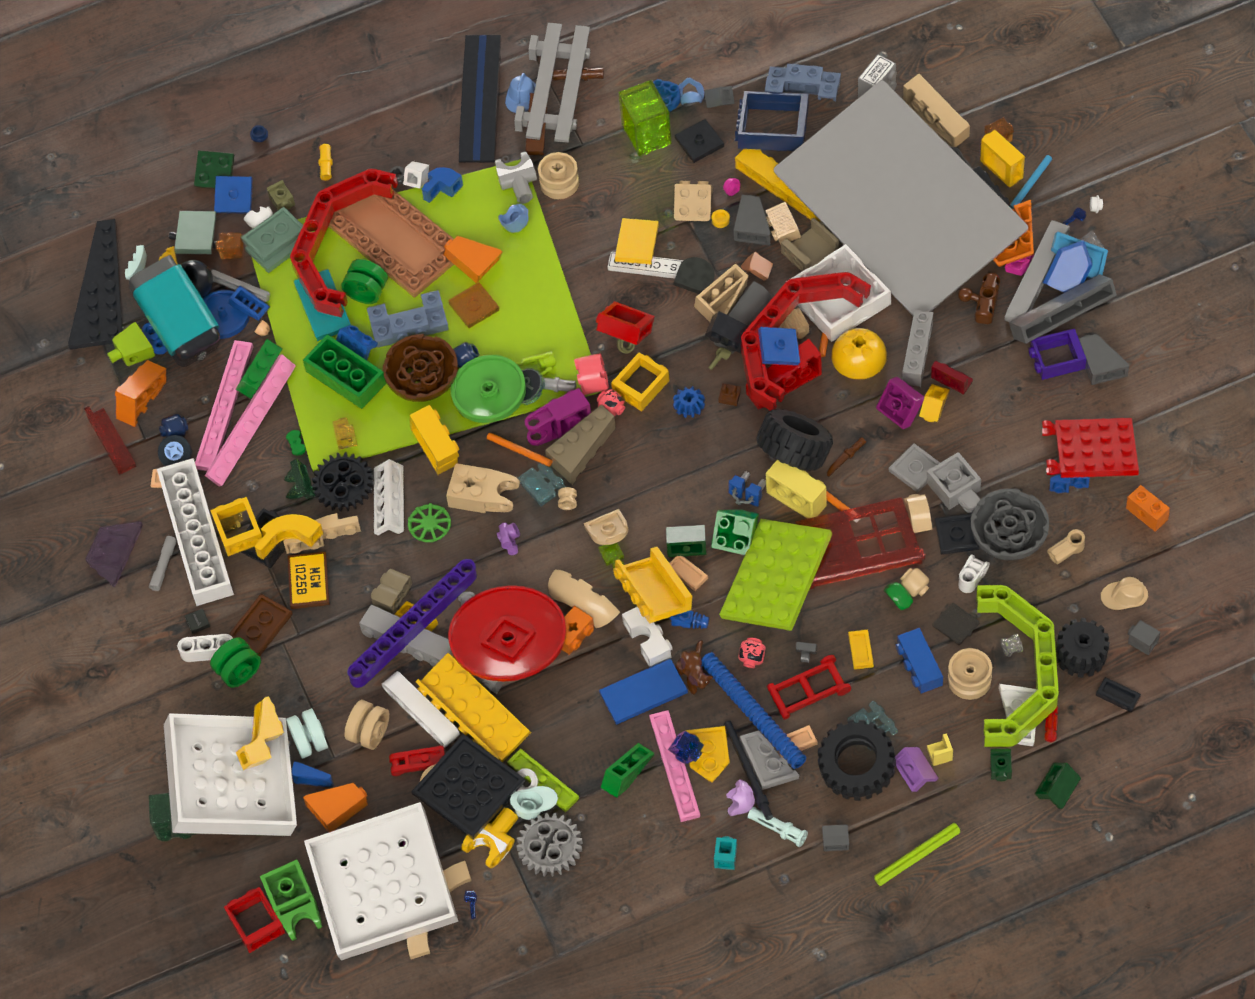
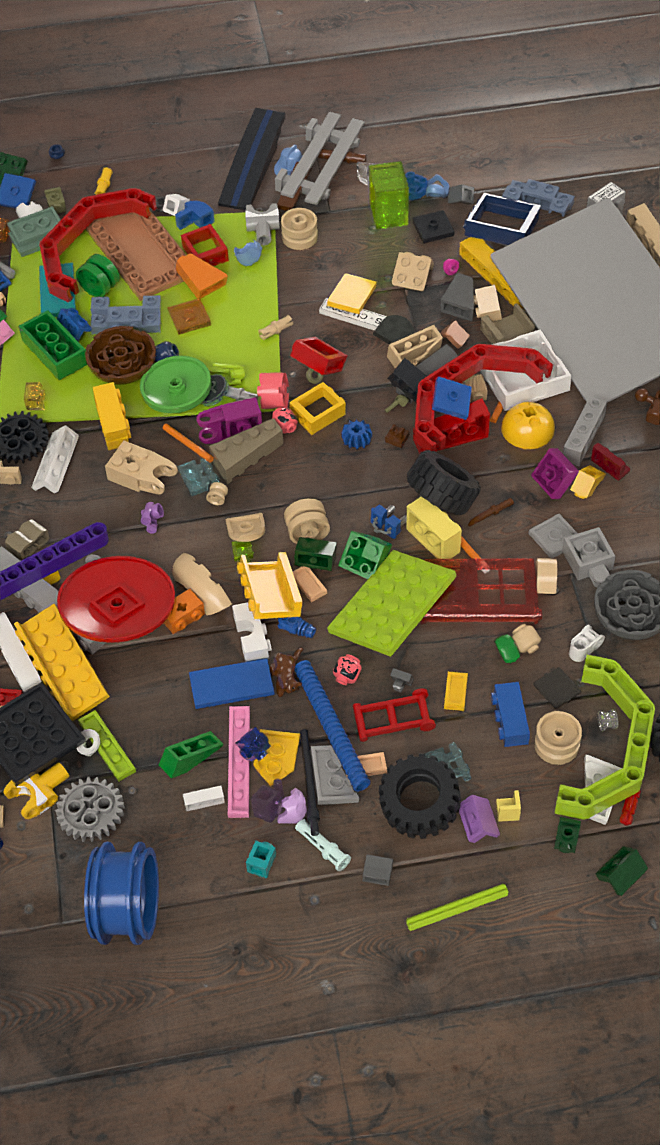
camera: 10 degrees right, 5 degrees down
(429, 523) = (84, 489): bright green wheel -> none
(476, 231) = (218, 255): none -> red window
(533, 801) = (85, 763): light aqua piece -> none
(570, 299) = (275, 327): none -> tan pin
(611, 87) = (363, 172): none -> clear slope
(613, 914) = (121, 893): none -> blue wheel
(653, 809) = (203, 798): none -> white piece
(668, 509) = (307, 520): none -> tan wheel
(716, 798) = (267, 801): none -> clear purple brick
(720, 218) = (433, 291): yellow tile -> none
(955, 534) = (577, 603): black plate -> none

